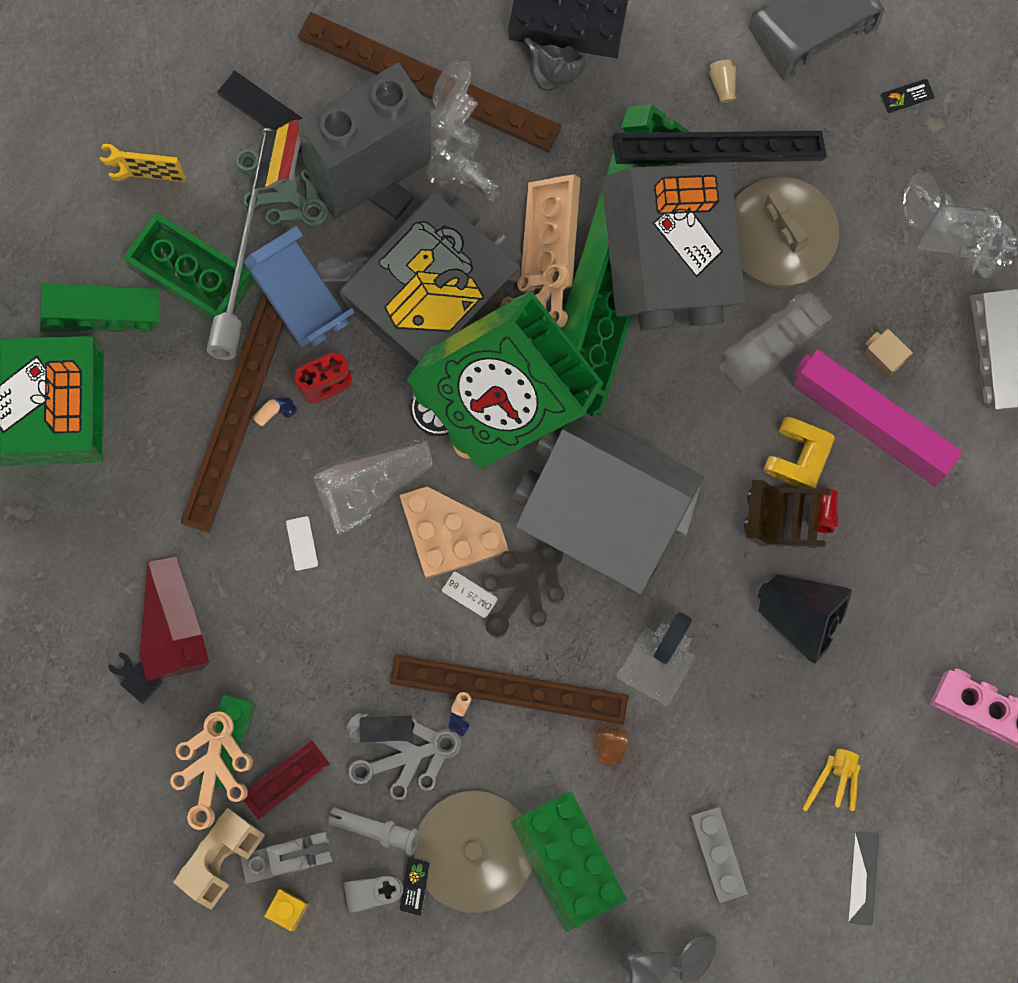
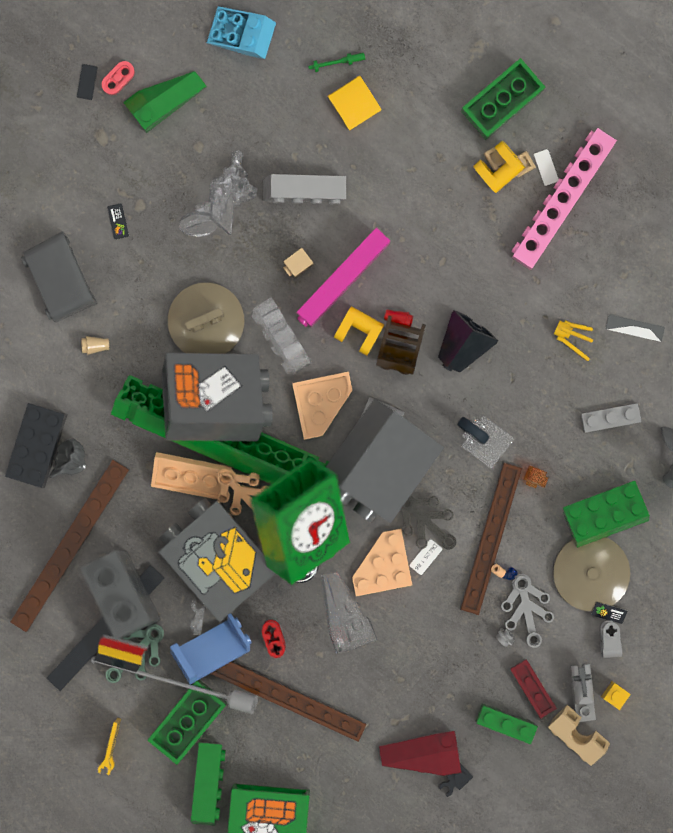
camera: 85 degrees left, 10 degrees up
(211, 765) = (522, 734): light nougat plant -> none
(273, 407) = (287, 674): arm -> none
(302, 543) = (379, 663): white sticker -> none
(385, 728) = (509, 621): black sticker -> none
(387, 833) = (575, 626): light grey pin -> none
(456, 153) = (106, 536): clear piece -> none
(684, 410) = (320, 401): none -> light nougat plate
(718, 147) = (146, 356): black tile -> none

